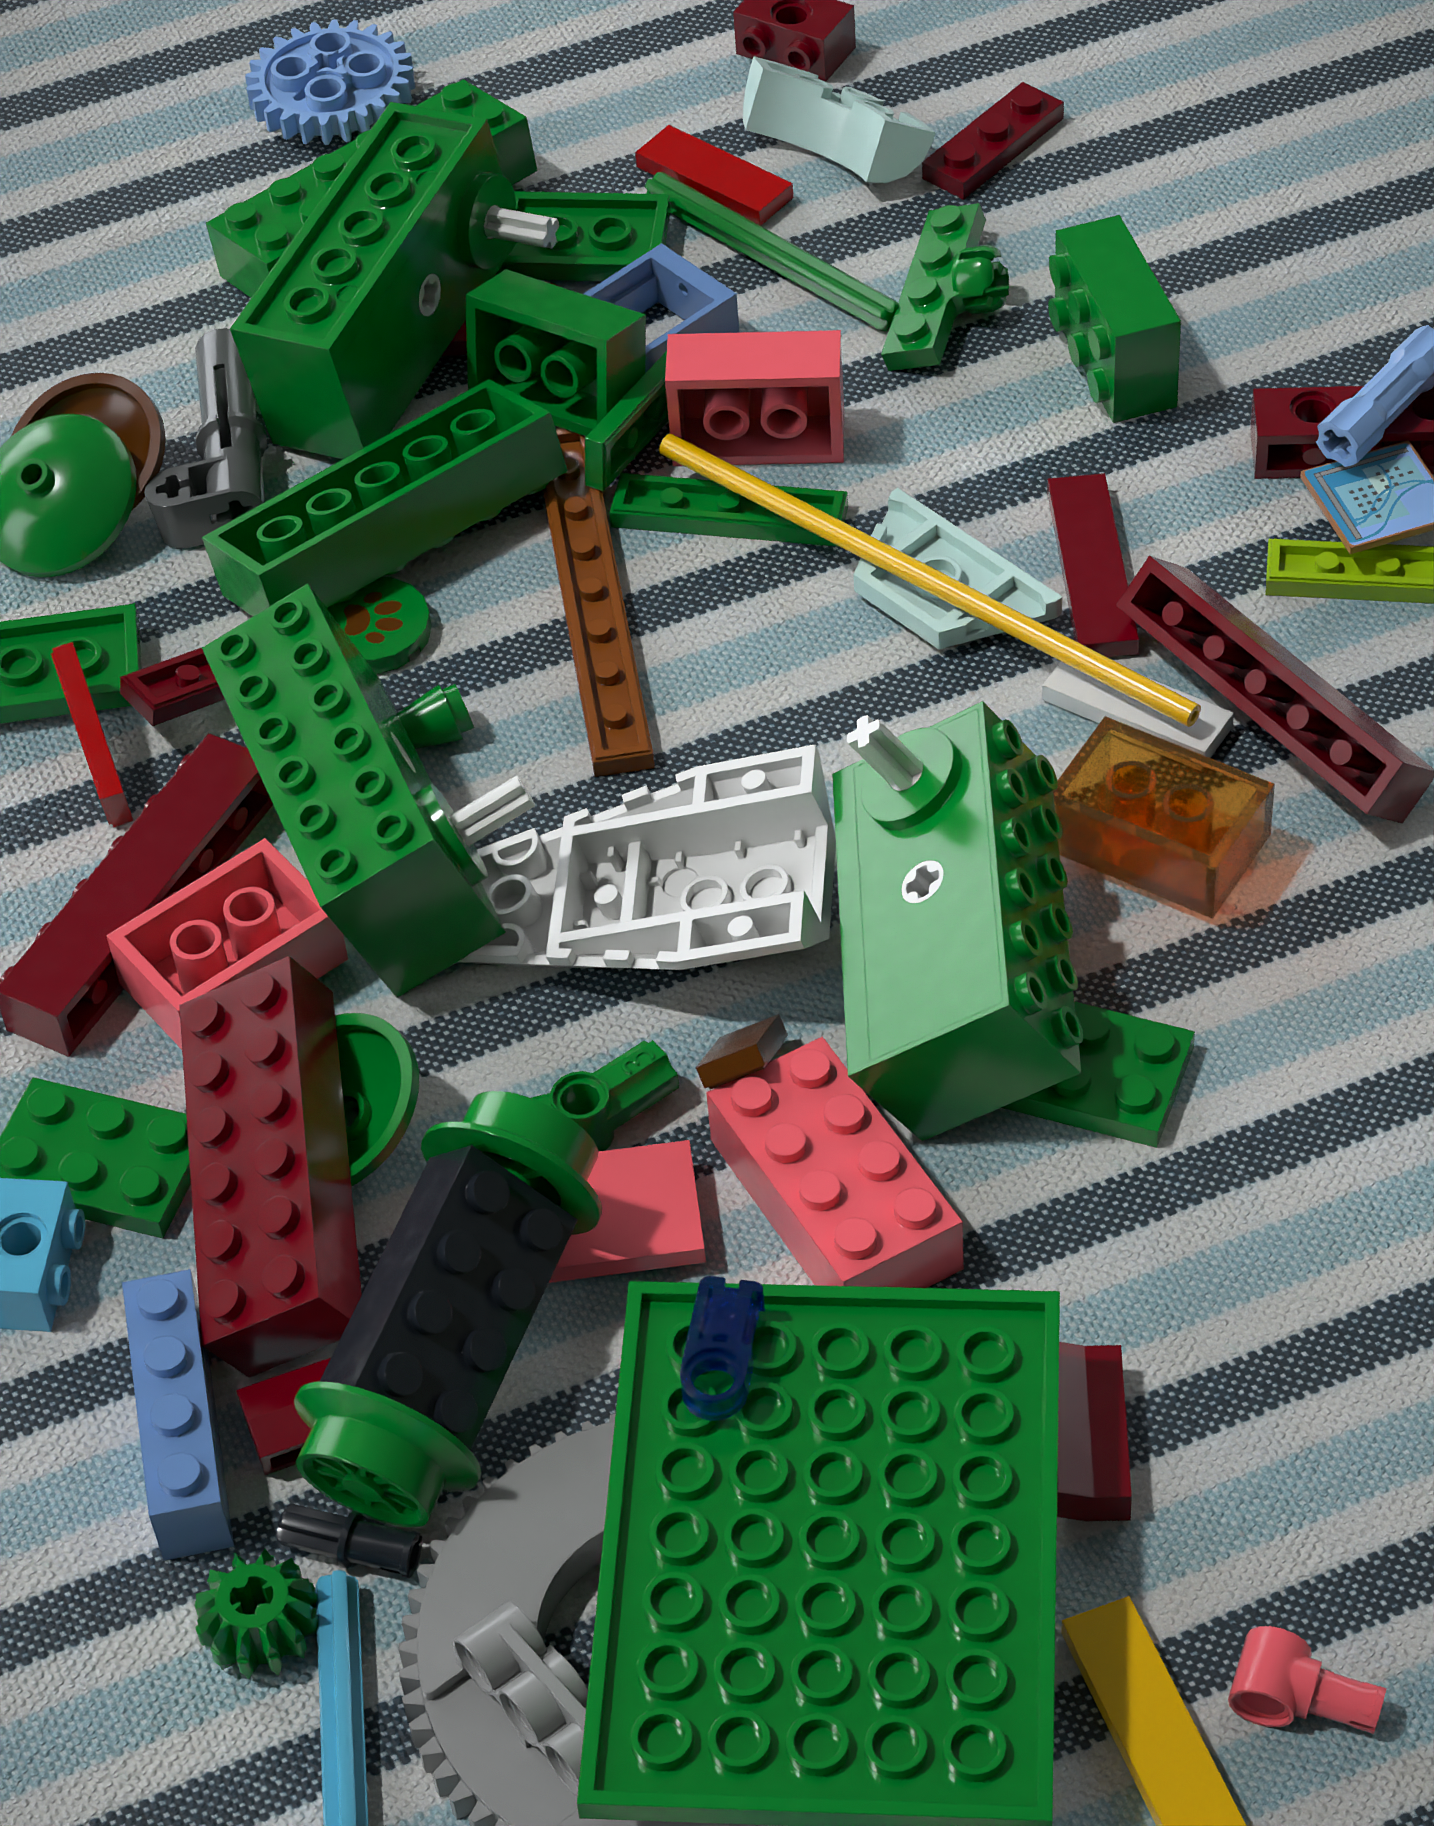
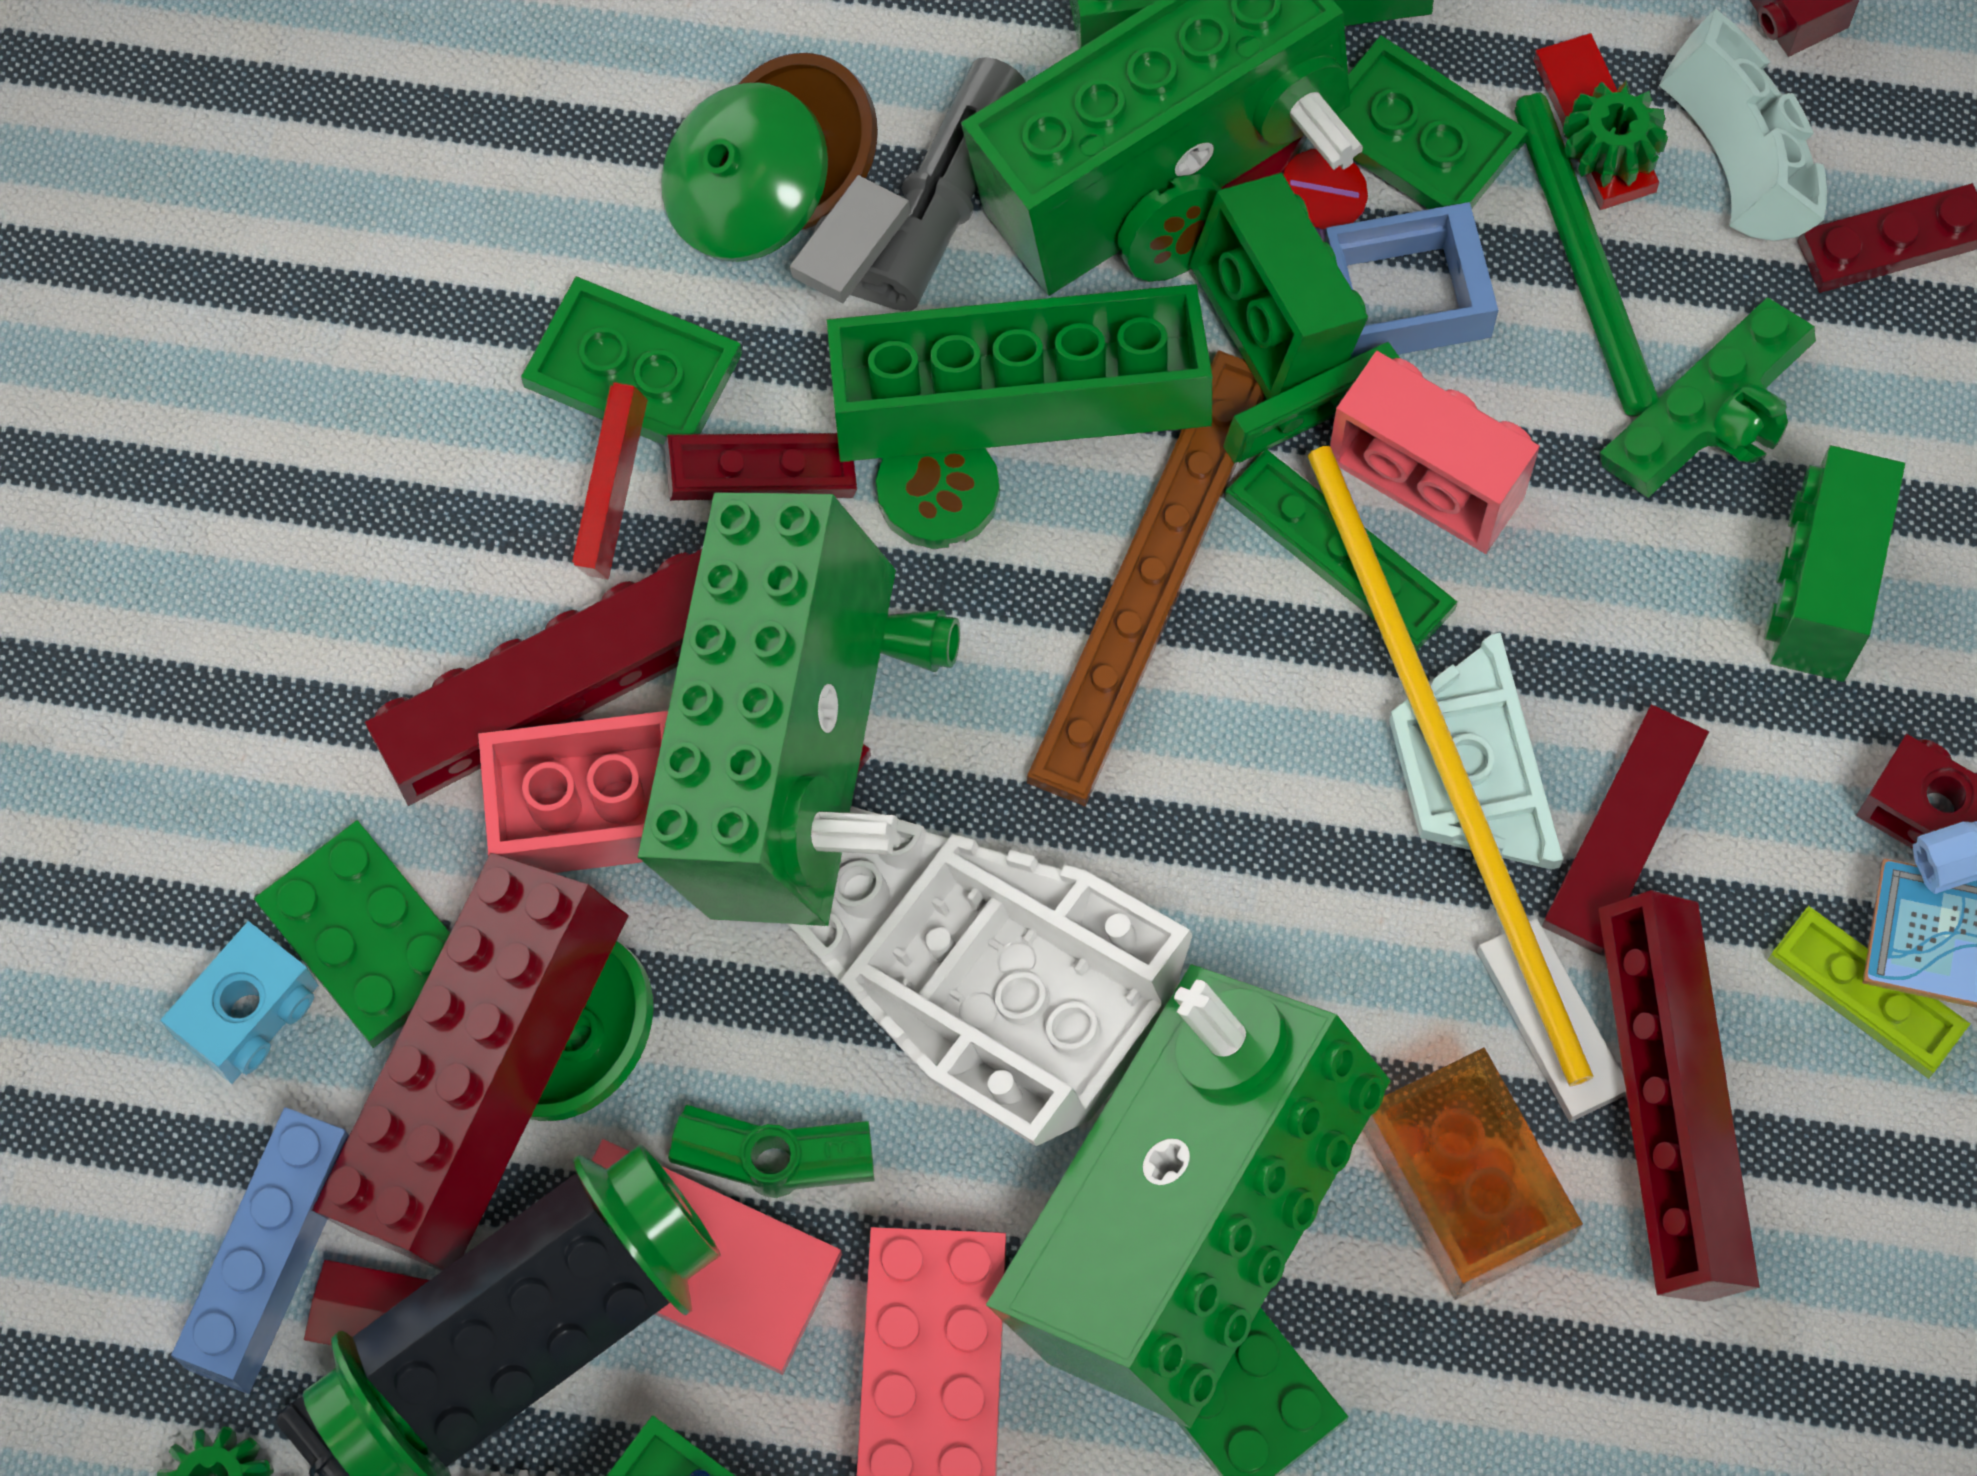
camera: 30 degrees right, 20 degrees up
(182, 480) = (850, 239): none -> light grey tile
(435, 359) = (1166, 228): none -> green tile
(738, 159) = (1615, 134): none -> green gear
(742, 1052) = (935, 1195): reddish brown tile -> none

